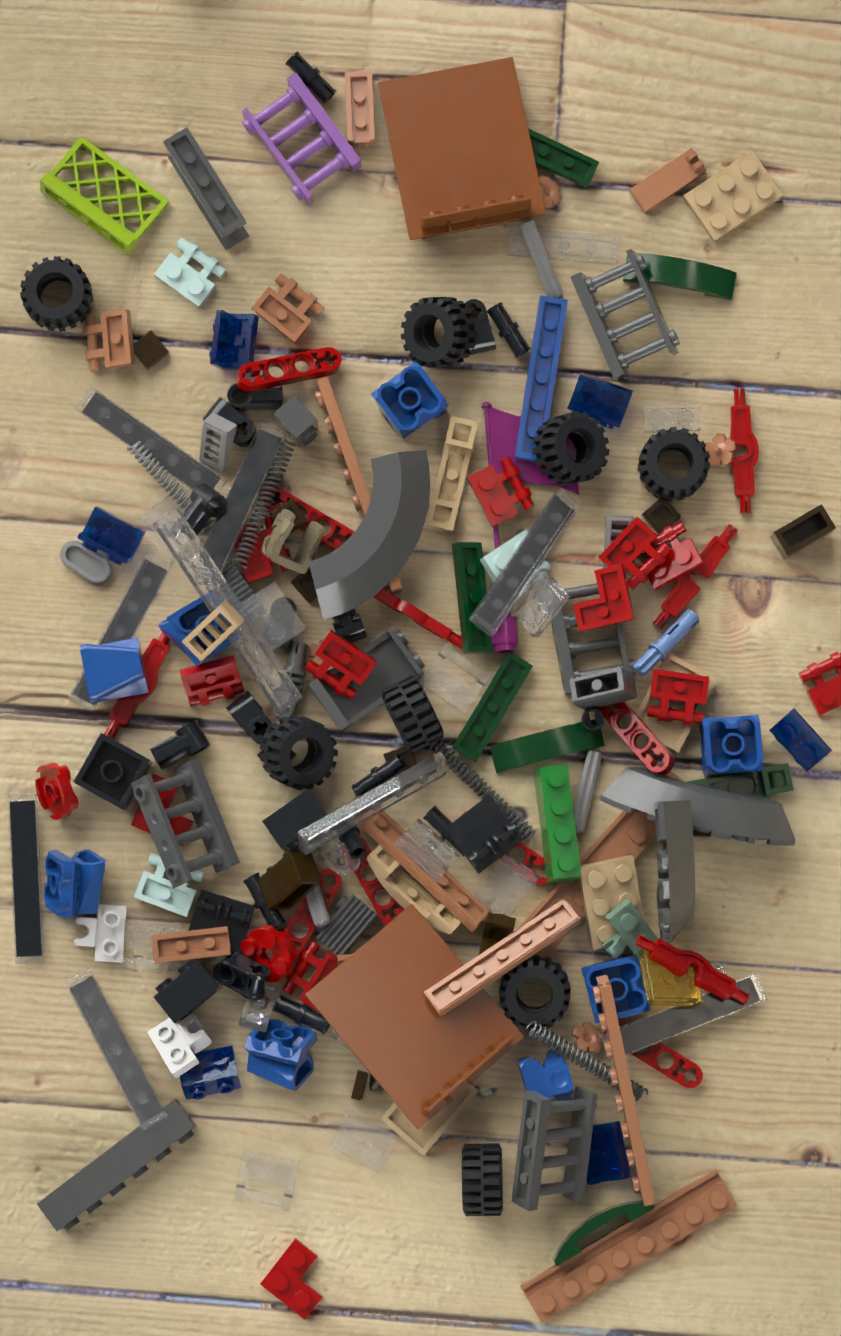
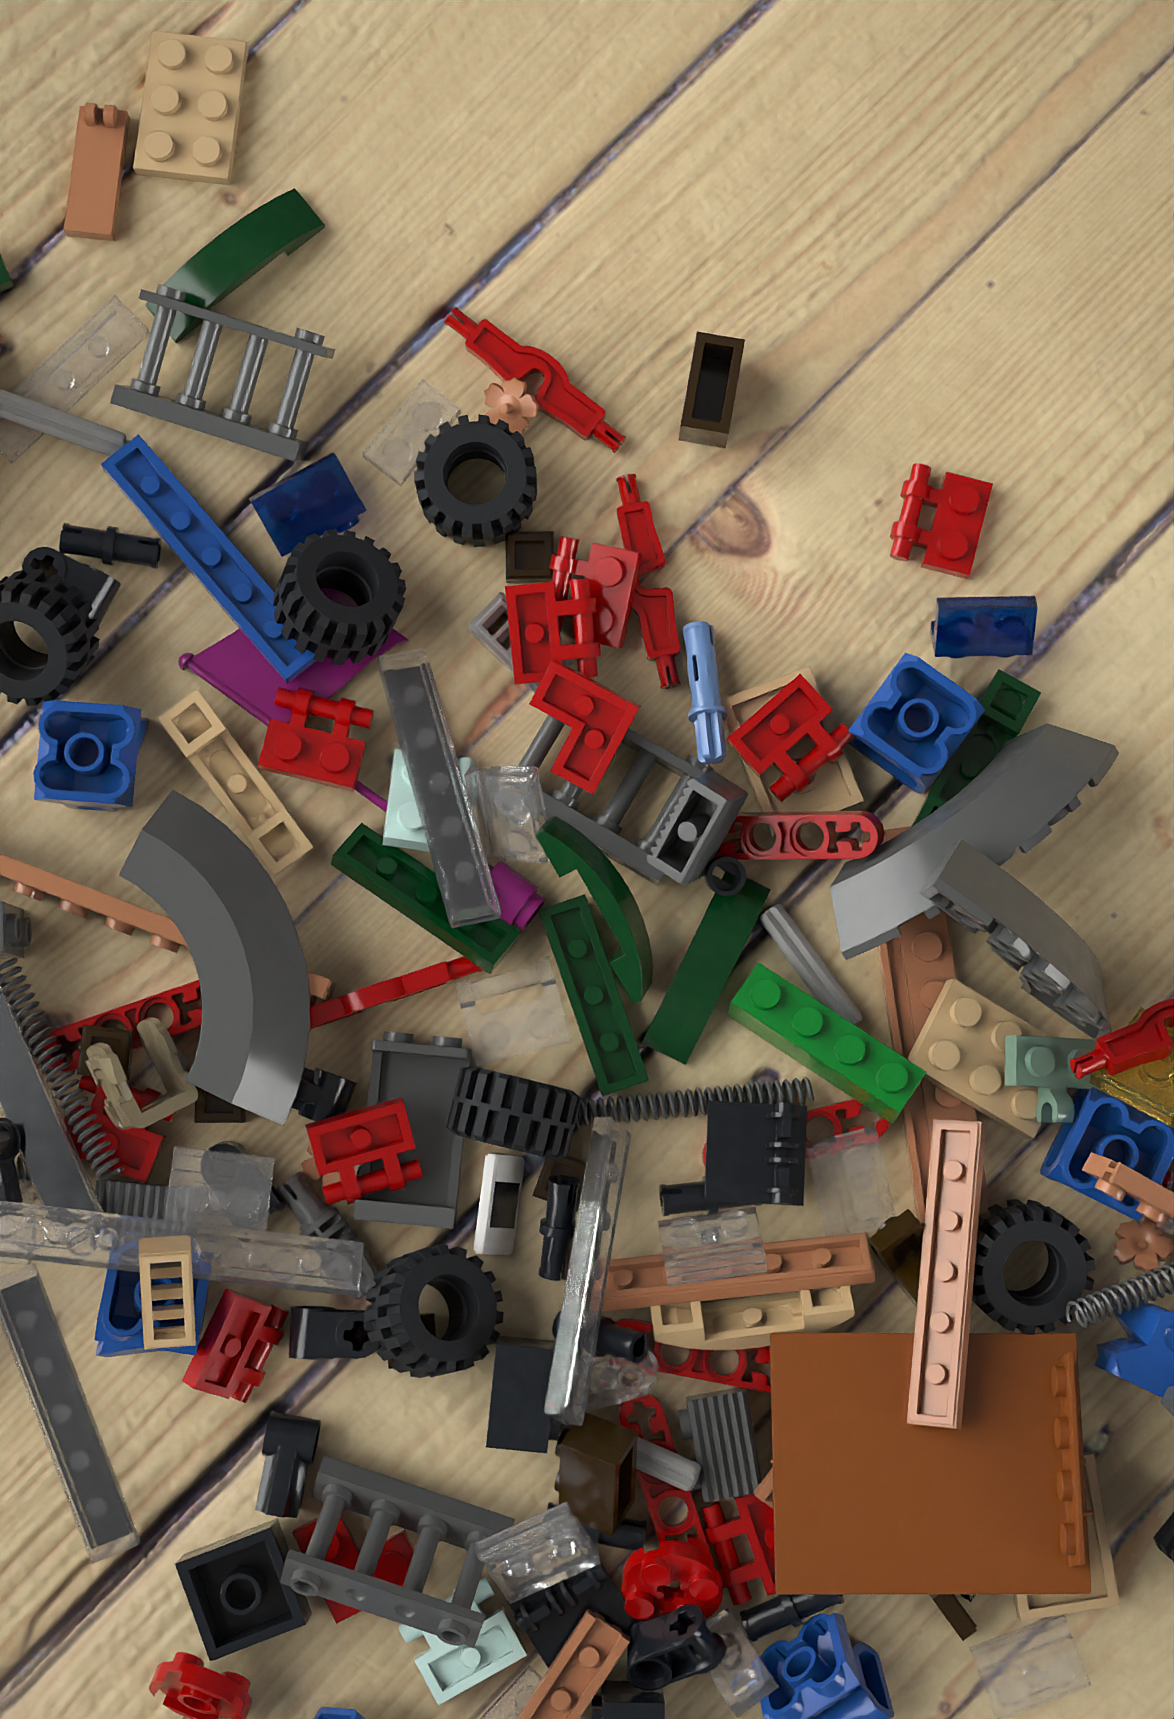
camera: 50 degrees left, 0 degrees up
(114, 670) = (104, 1471): blue piece -> none
(126, 706) = (163, 1470): red piece -> none
(234, 883) = (538, 1552): none -> clear plate
(367, 742) = (499, 1204): none -> slope
(546, 642) = (573, 851): none -> dark green slope

